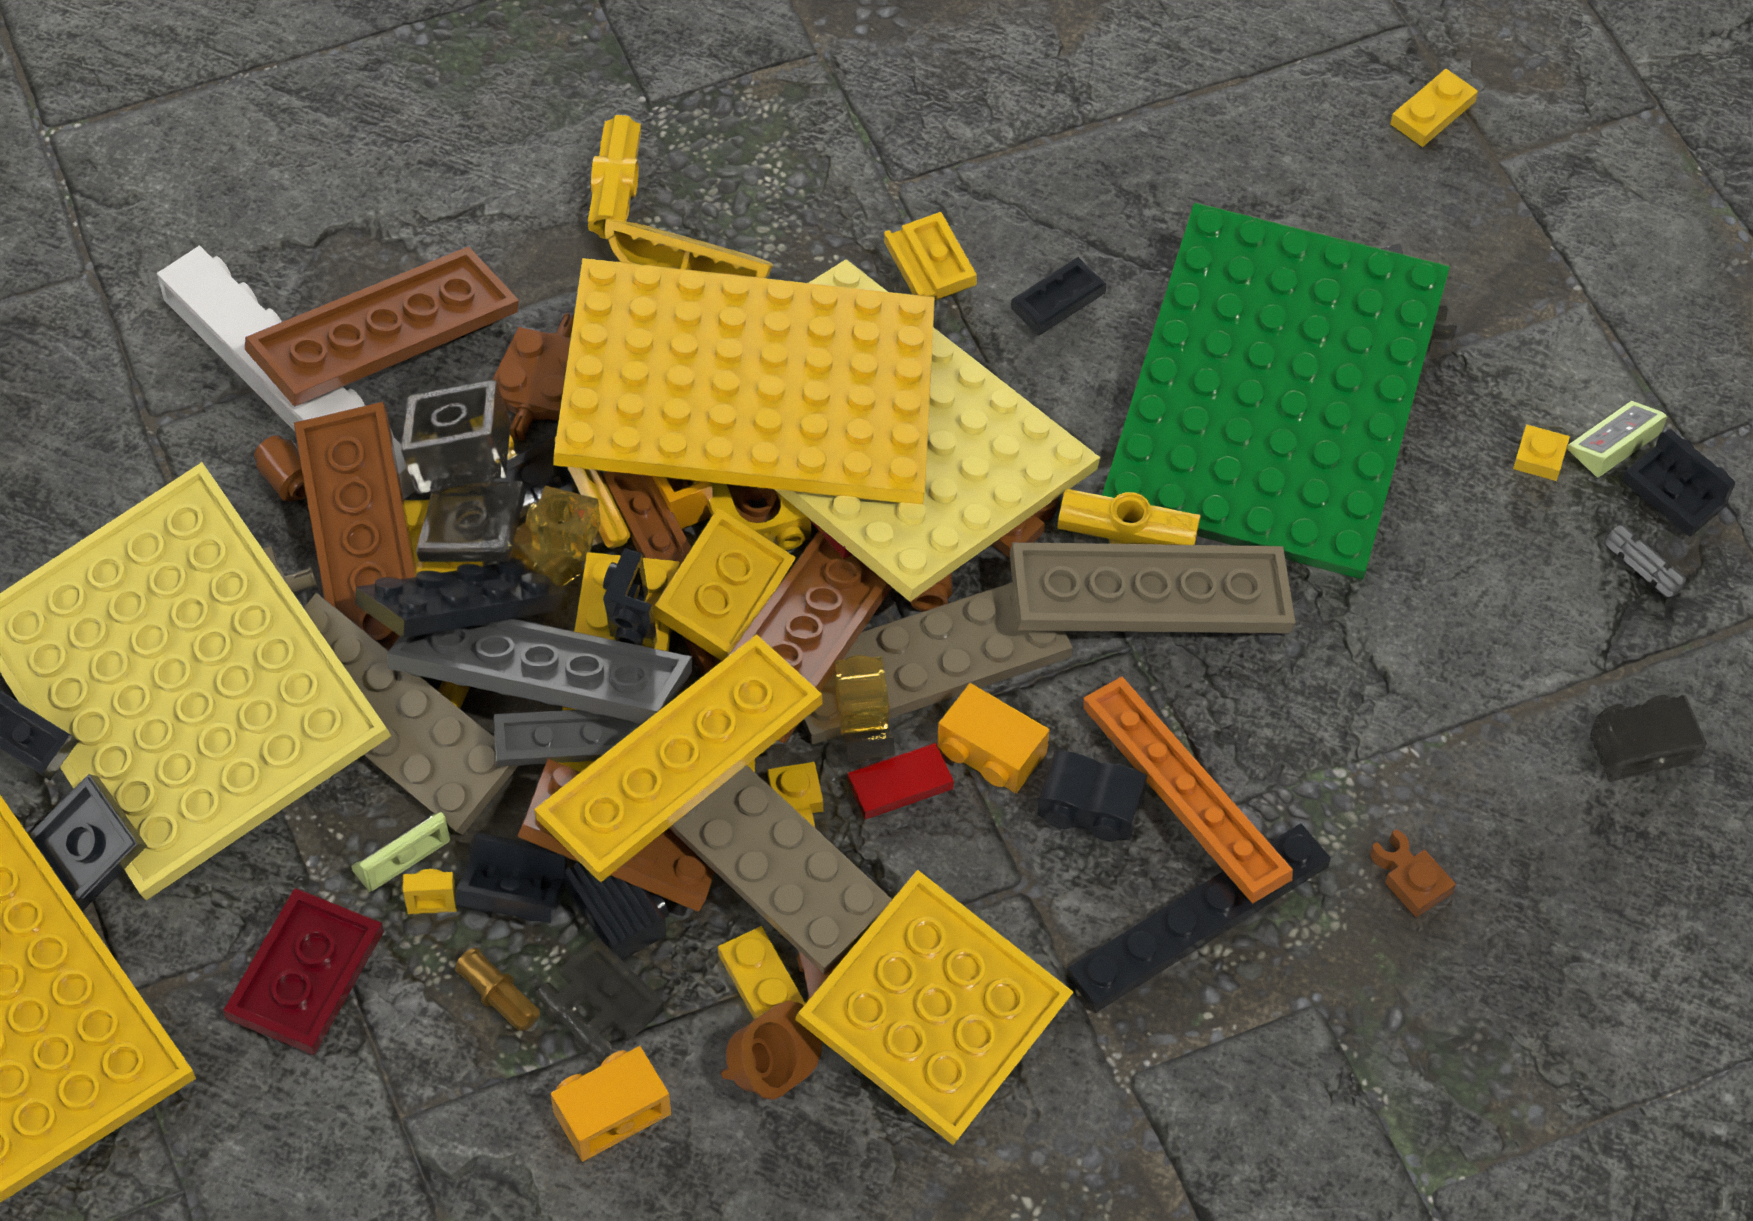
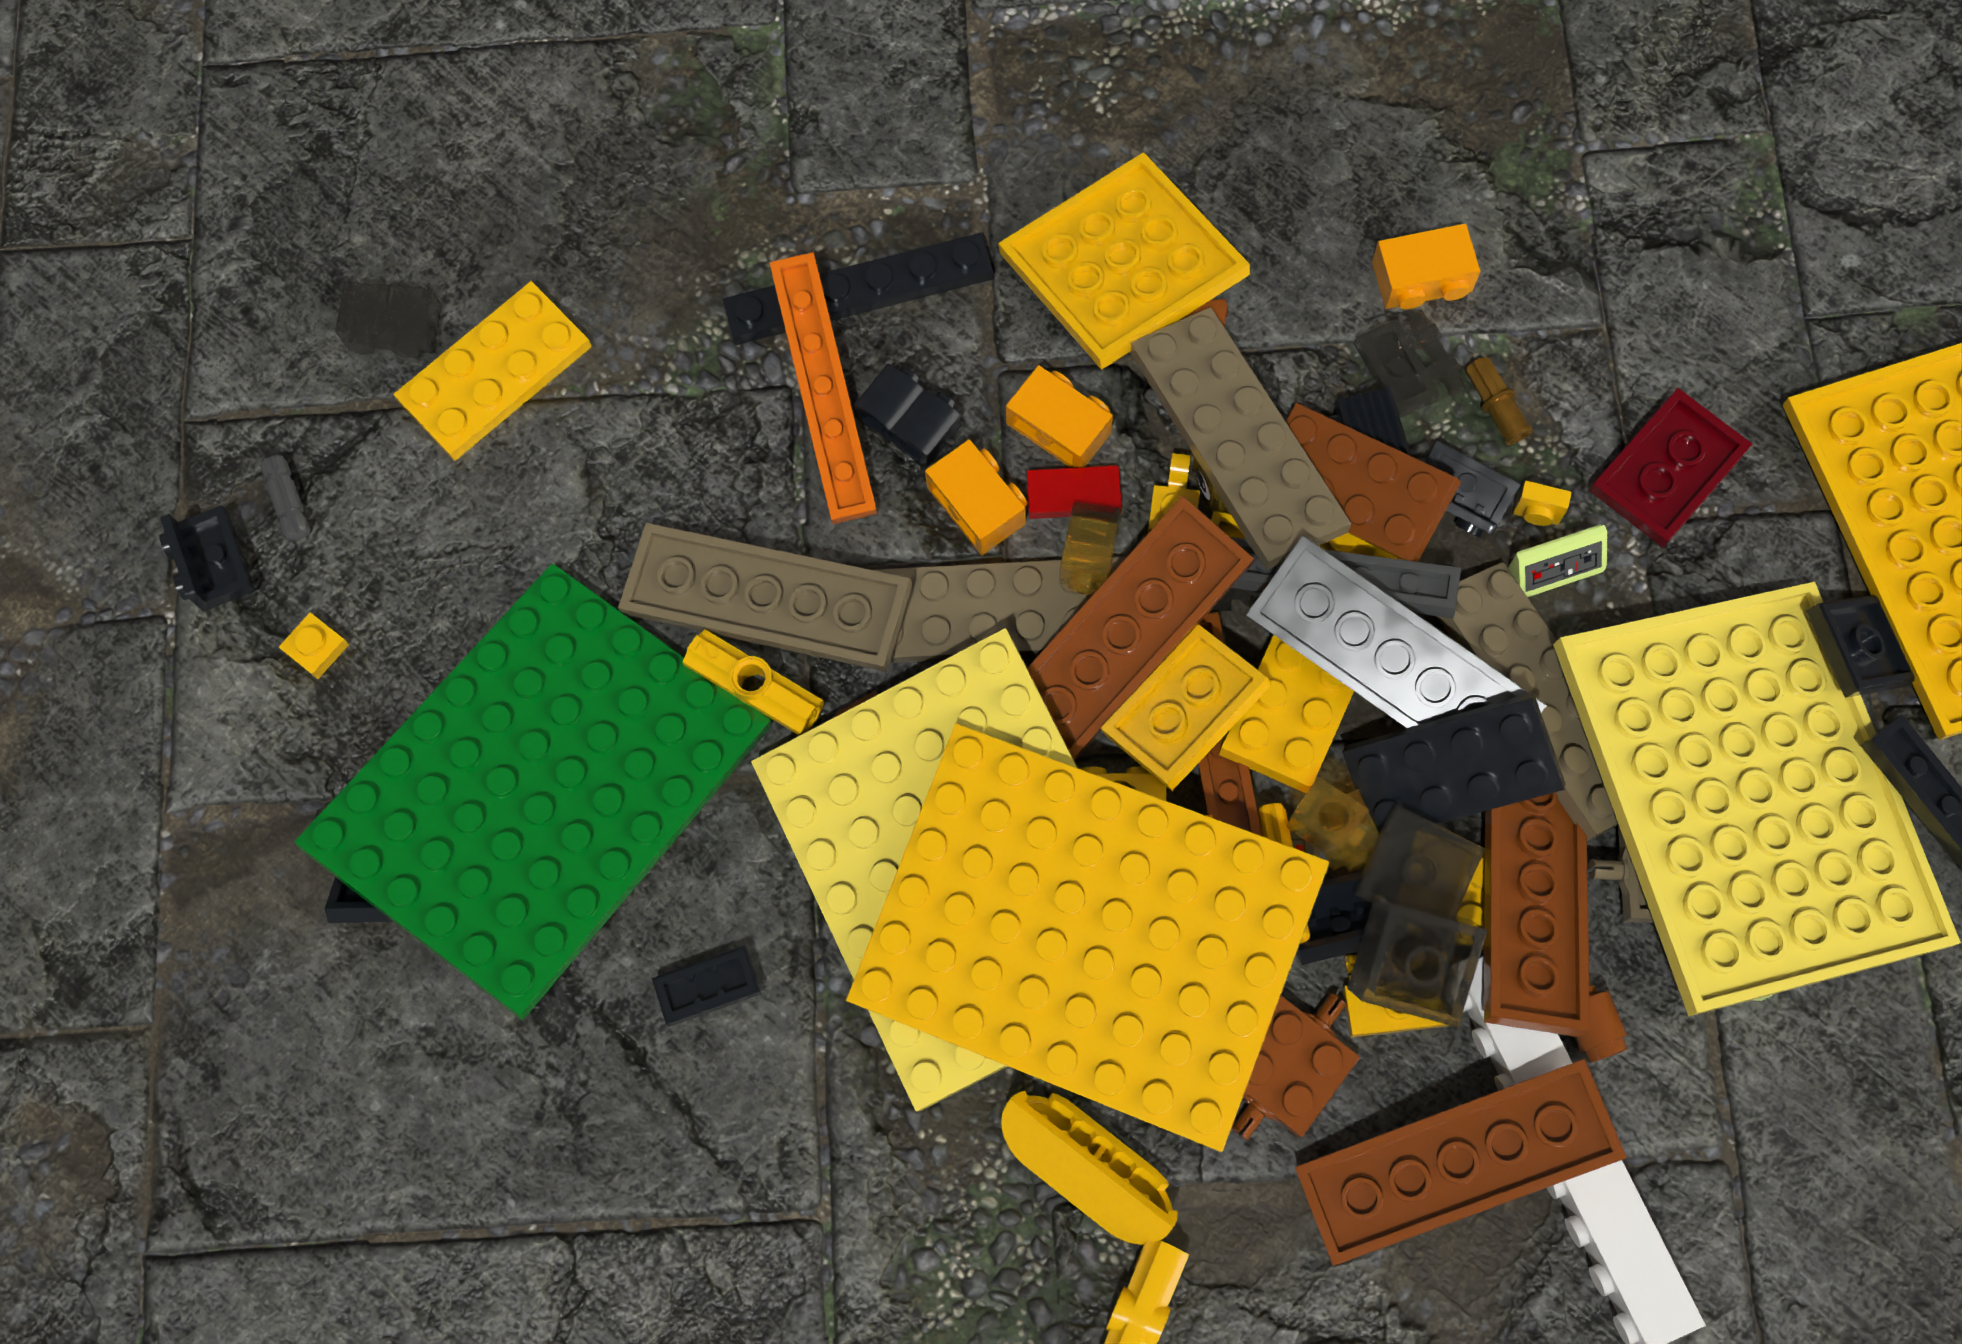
camera: 155 degrees left, 15 degrees up
(627, 613) = (1298, 663): black bracket -> none
(678, 757) = (1294, 484): yellow plate -> none
(758, 972) = (1261, 342): yellow plate -> none
(772, 1052) = (1281, 263): dark orange piece -> none
(930, 257) = (823, 1082): yellow plate -> none
(939, 835) = (1059, 417): none -> light orange brick
(1413, 879) = (656, 269): dark orange plate -> none
(1434, 107) = (181, 1116): yellow plate -> none
(1520, 732) = (492, 370): none -> yellow plate
(1617, 437) = (230, 636): yellowish green slope -> none

